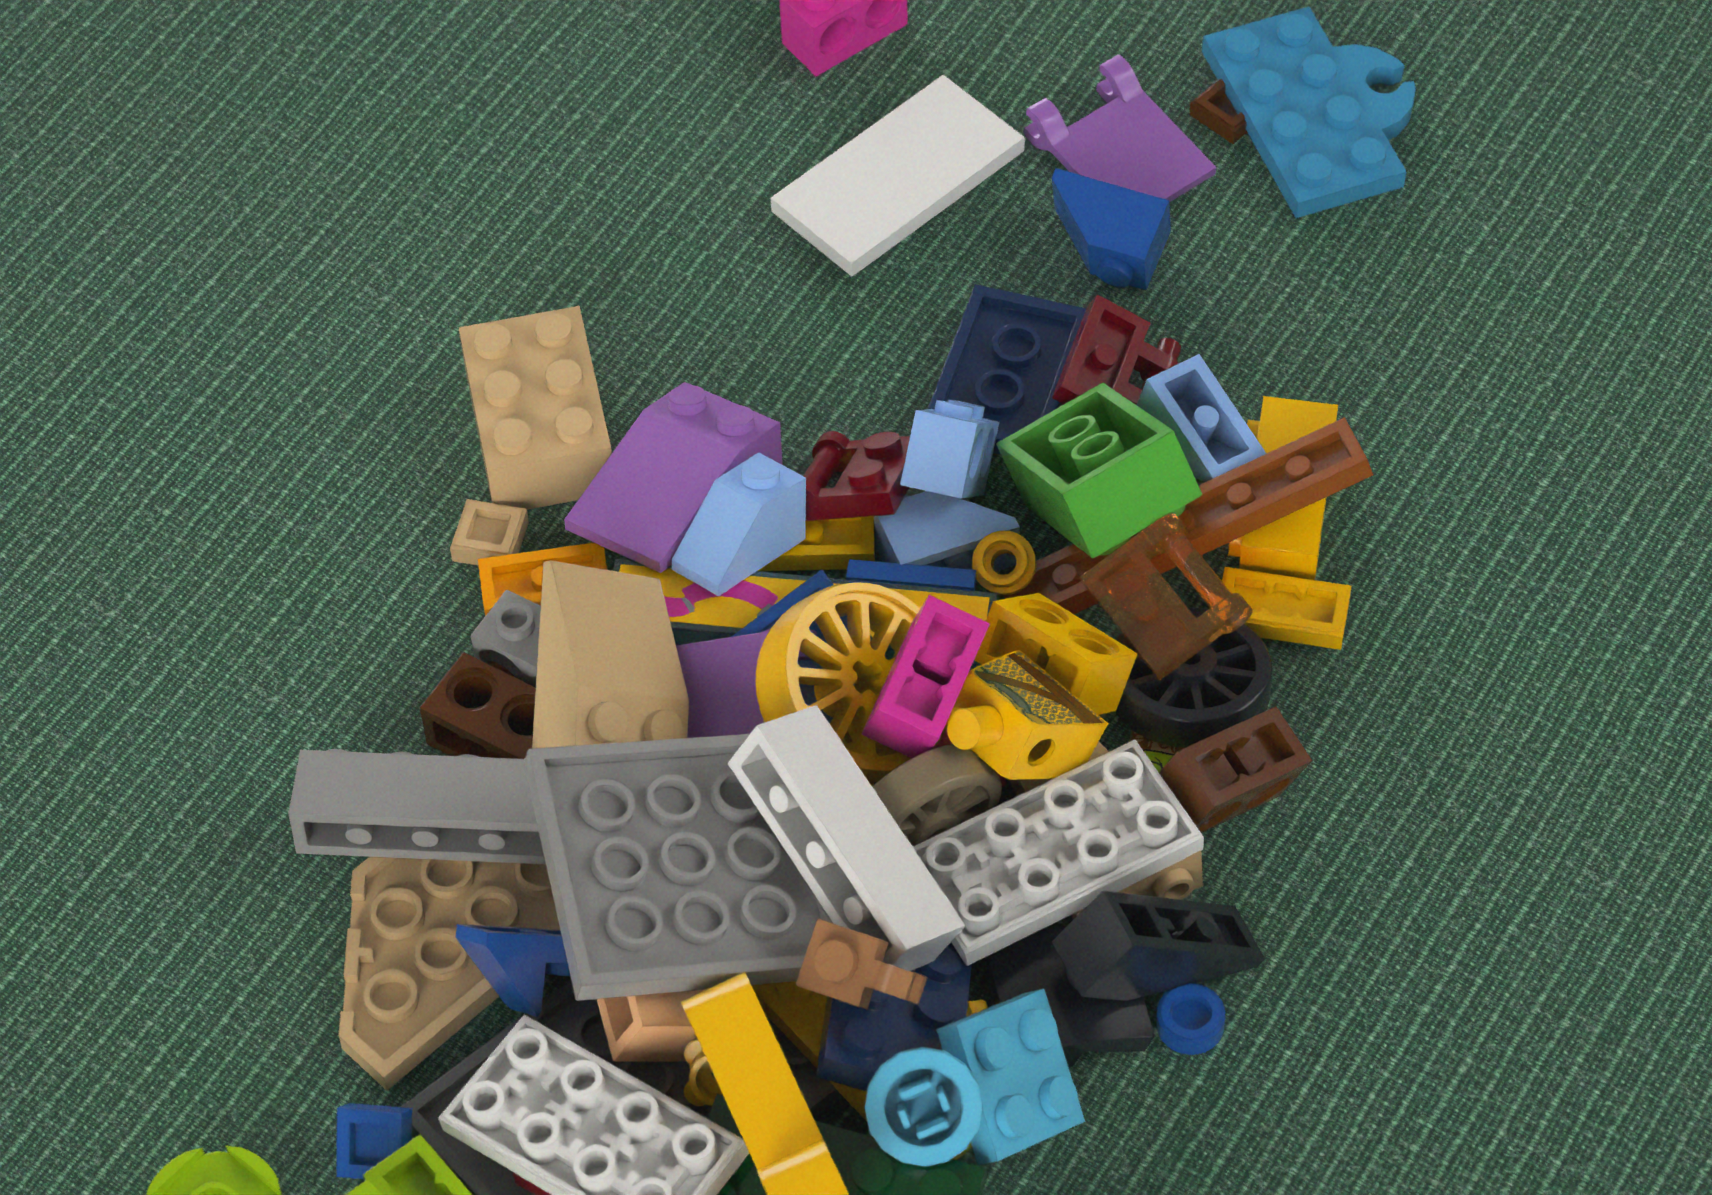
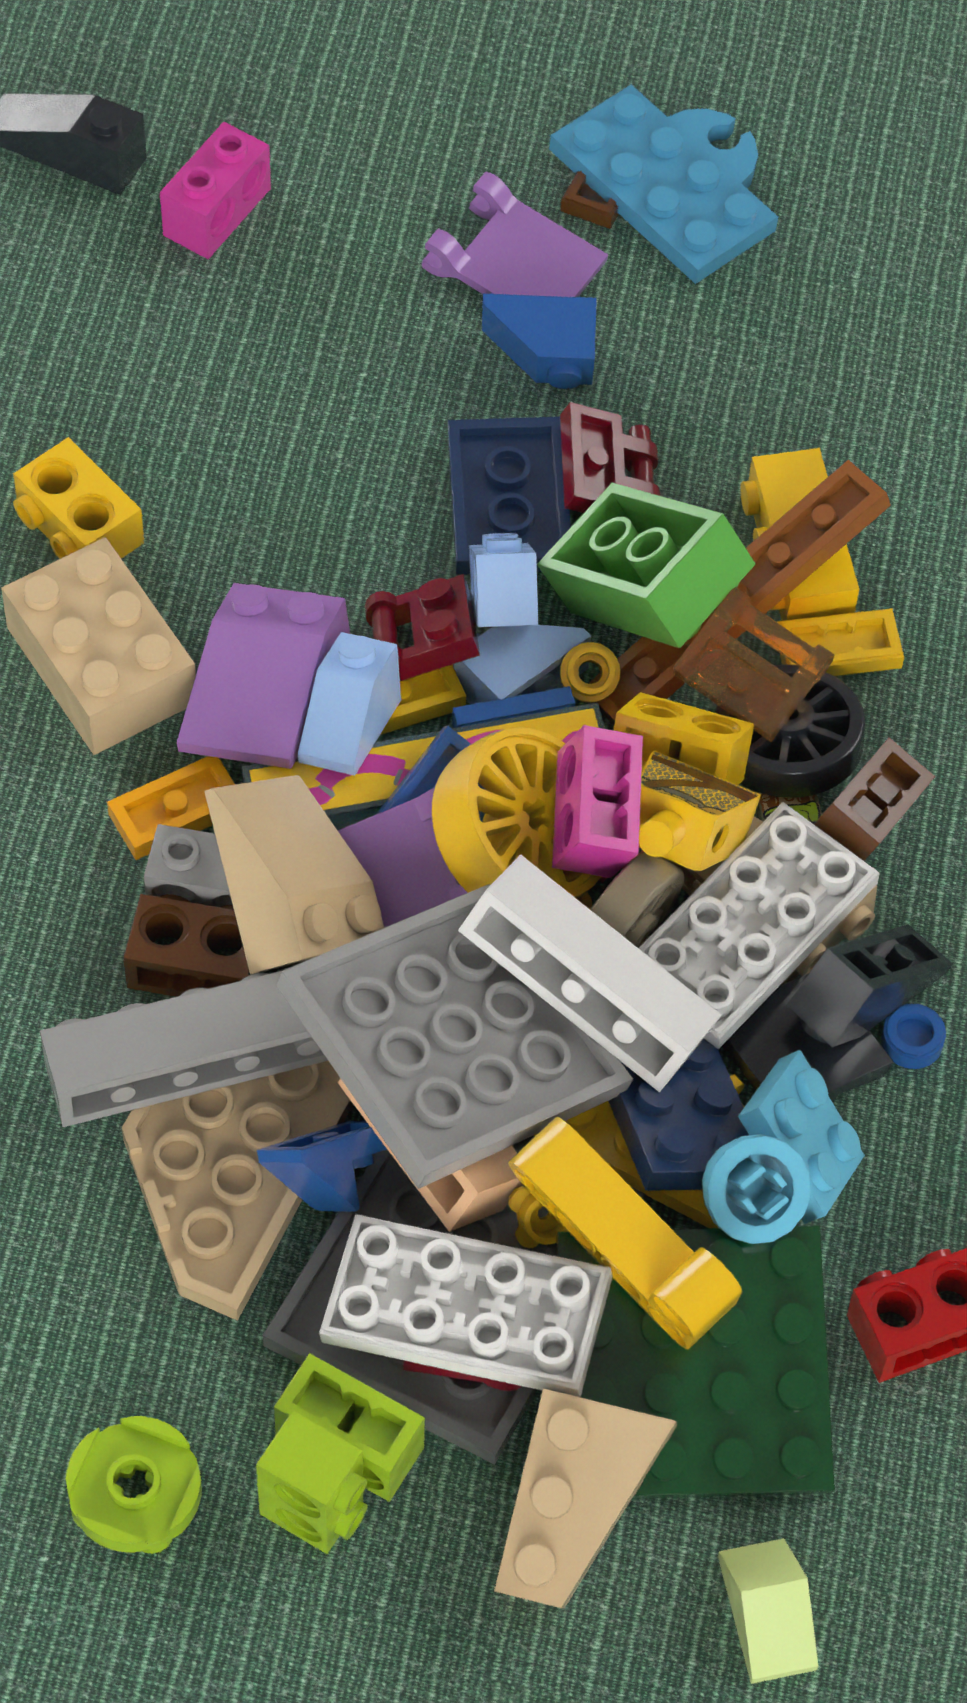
camera: 25 degrees left, 5 degrees up
(369, 1136) = (253, 1371): blue plate -> none
(488, 531) = (99, 773): tan tile -> none
(576, 268) = (84, 502): none -> yellow brick
(851, 966) = (641, 1083): medium nougat plate -> none
(897, 175) = (330, 335): white tile -> none
(1202, 418) = (707, 481): light blue slope -> none

